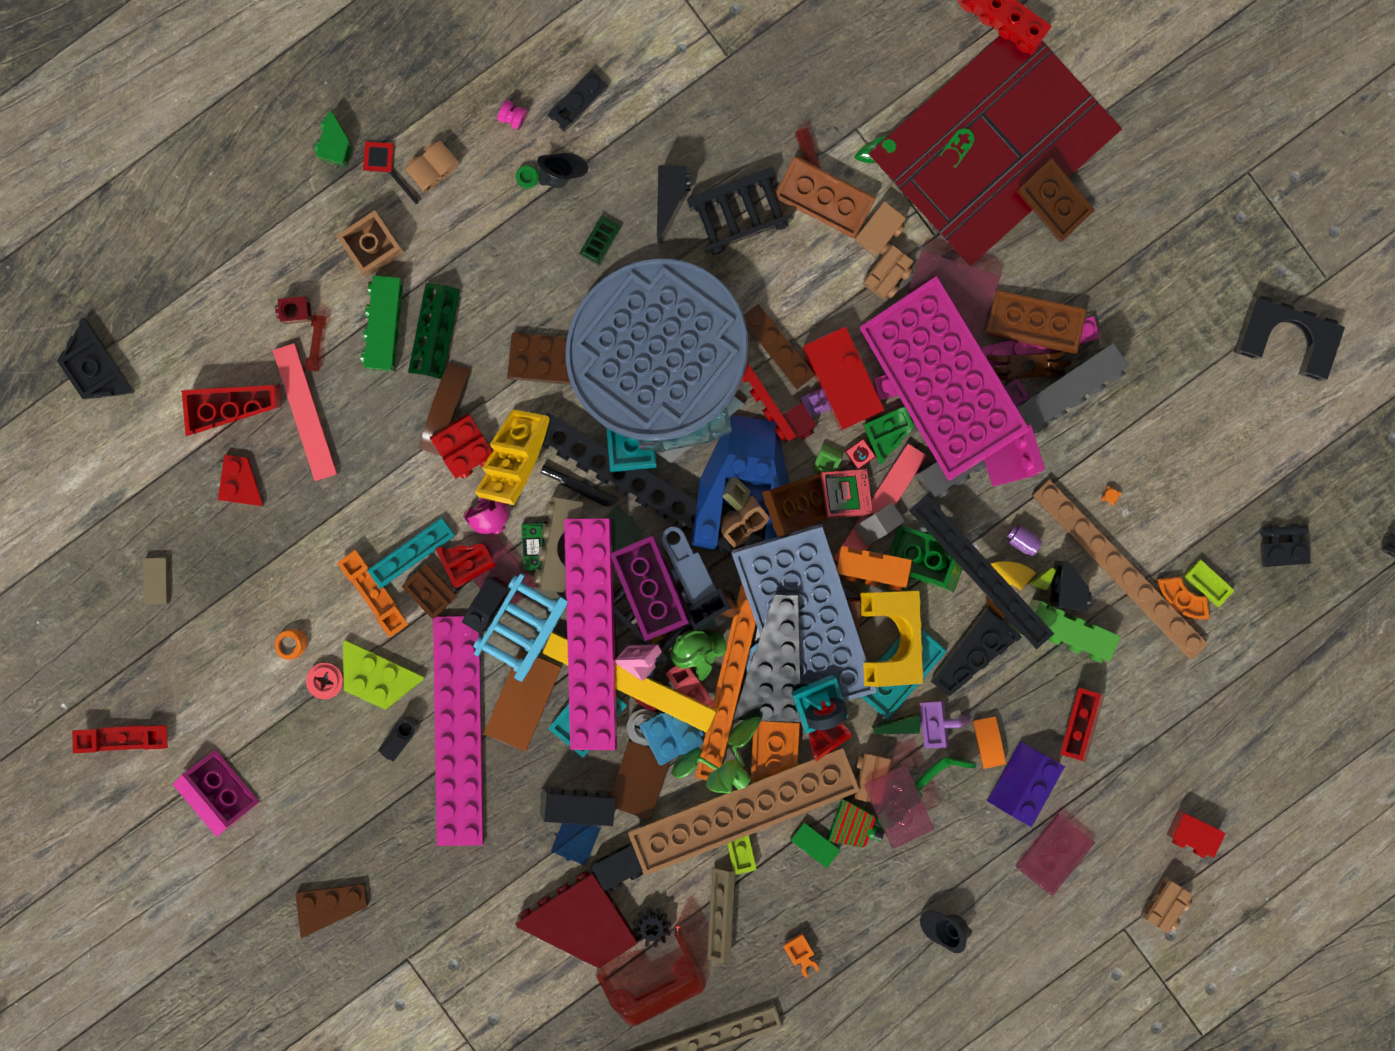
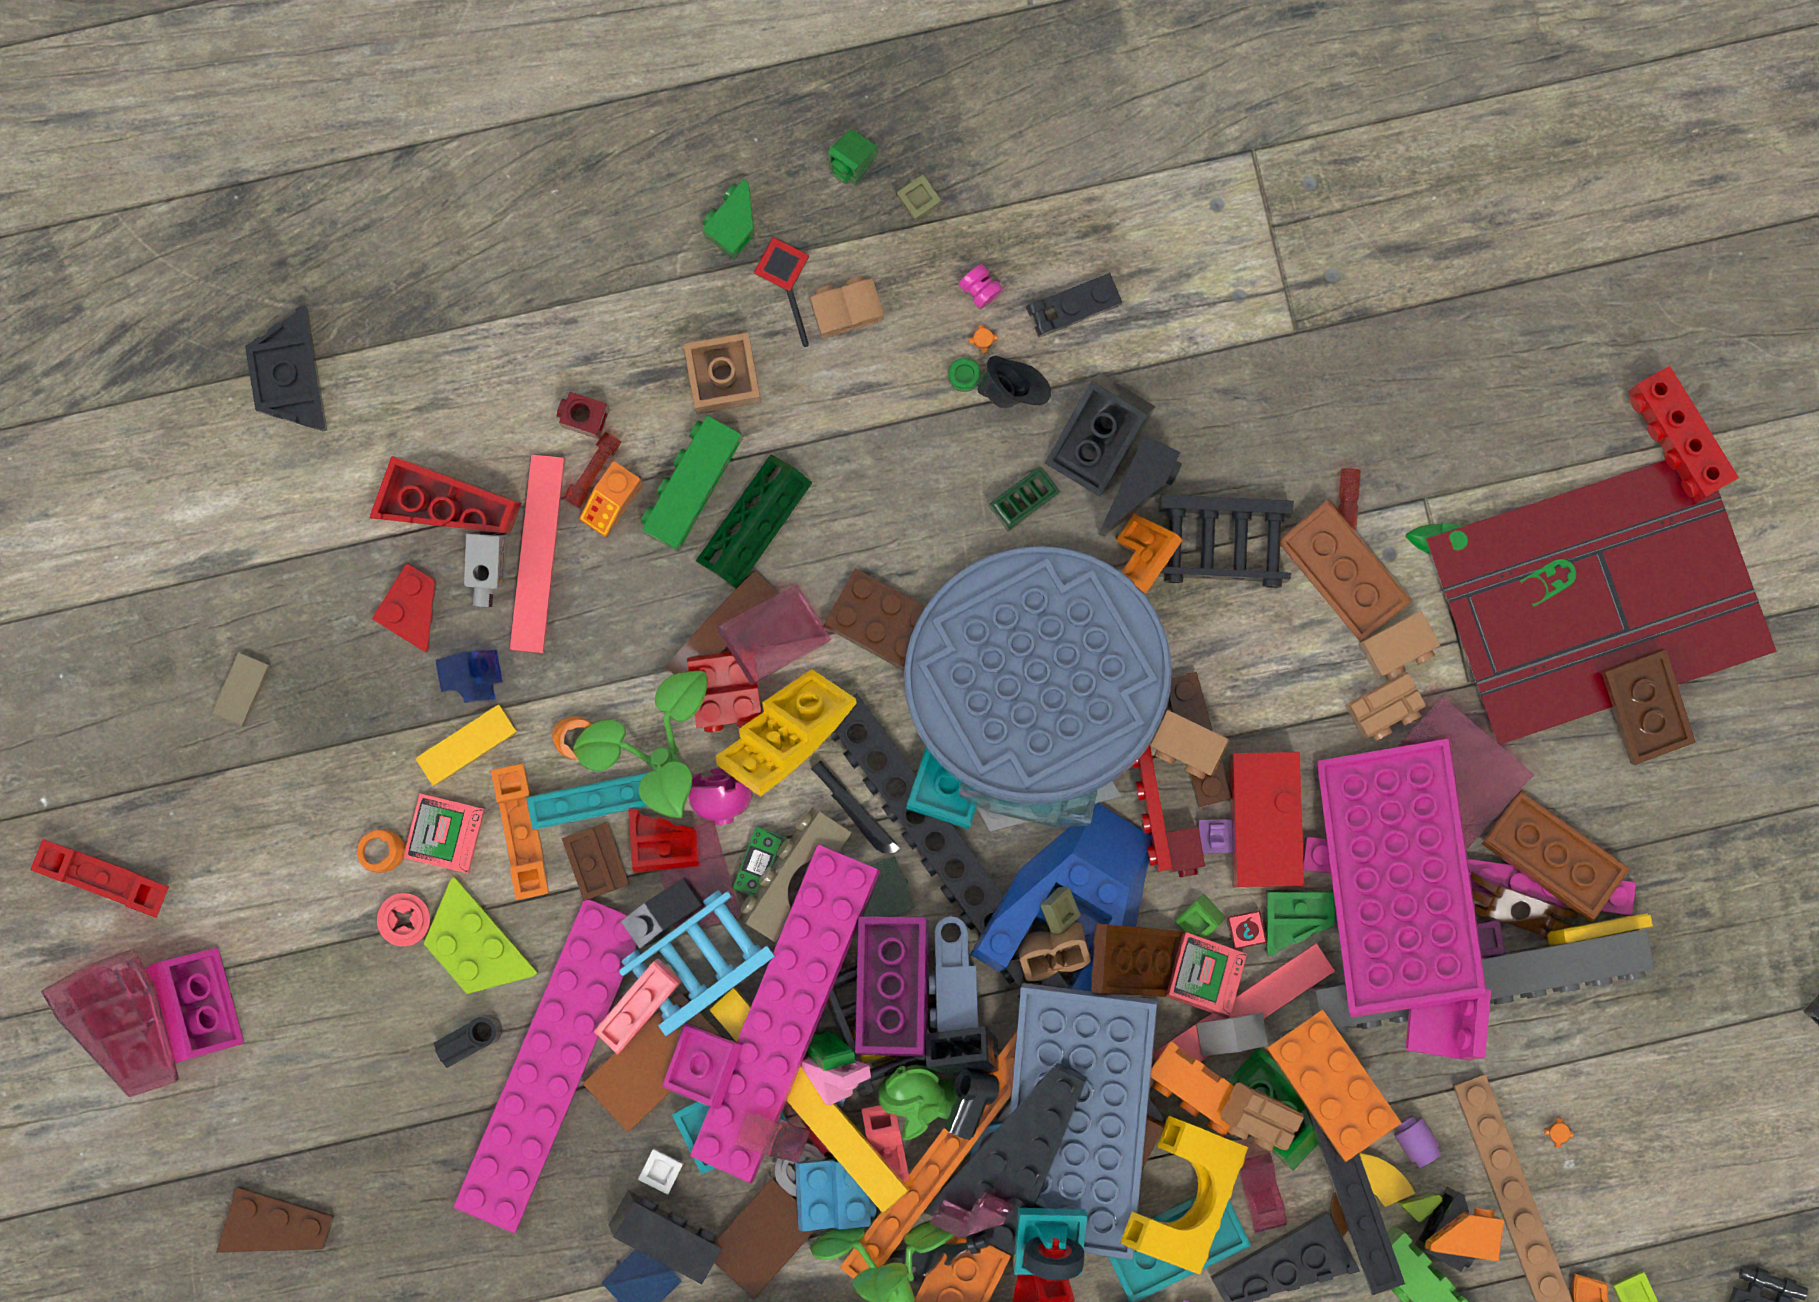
camera: 25 degrees right, 5 degrees down
(172, 823) = (117, 1021): none -> clear pink wedge
(272, 424) = (486, 550): none -> light grey torso
(296, 507) = (470, 674): none -> clear blue brick
(314, 553) = (466, 745): none -> yellow tile
(325, 615) = (444, 833): none -> tile
(335, 356) = (610, 499): none -> orange slope
(369, 518) = (560, 730): none -> orange piece
(391, 66) = (851, 157): none -> green slope
(447, 74) = (919, 197): none -> olive plate
(452, 523) = (671, 782): none -> bright green plant
(478, 397) = (773, 634): none -> clear pink tile
(496, 670) = (637, 1006): none -> coral tile
(529, 148) = (983, 338): none -> orange piece
(553, 690) = (702, 1066): none -> dark pink tile
(556, 766) = (660, 1171): none -> white plate
(617, 716) = (771, 1137): none -> clear pink slope
(629, 645) = (829, 1051): none -> green tile
(630, 177) = (1099, 434): none -> black slope
(695, 236) = (1152, 550): none -> orange plate
(731, 632) = (973, 1093): none -> black piece
(749, 749) = (928, 1261): none -> black piece
(771, 704) = (986, 1213): none -> clear pink slope
(772, 351) = (1190, 744): none -> medium nougat brick
(919, 568) = (1262, 1117): none -> medium nougat brick
(940, 615) = (1262, 1193): none -> clear pink slope
(956, 528) = (1333, 1085): none -> orange plate
(1082, 585) = (1470, 1235): none -> orange slope
(1083, 356) = (1599, 929): none -> yellow tile

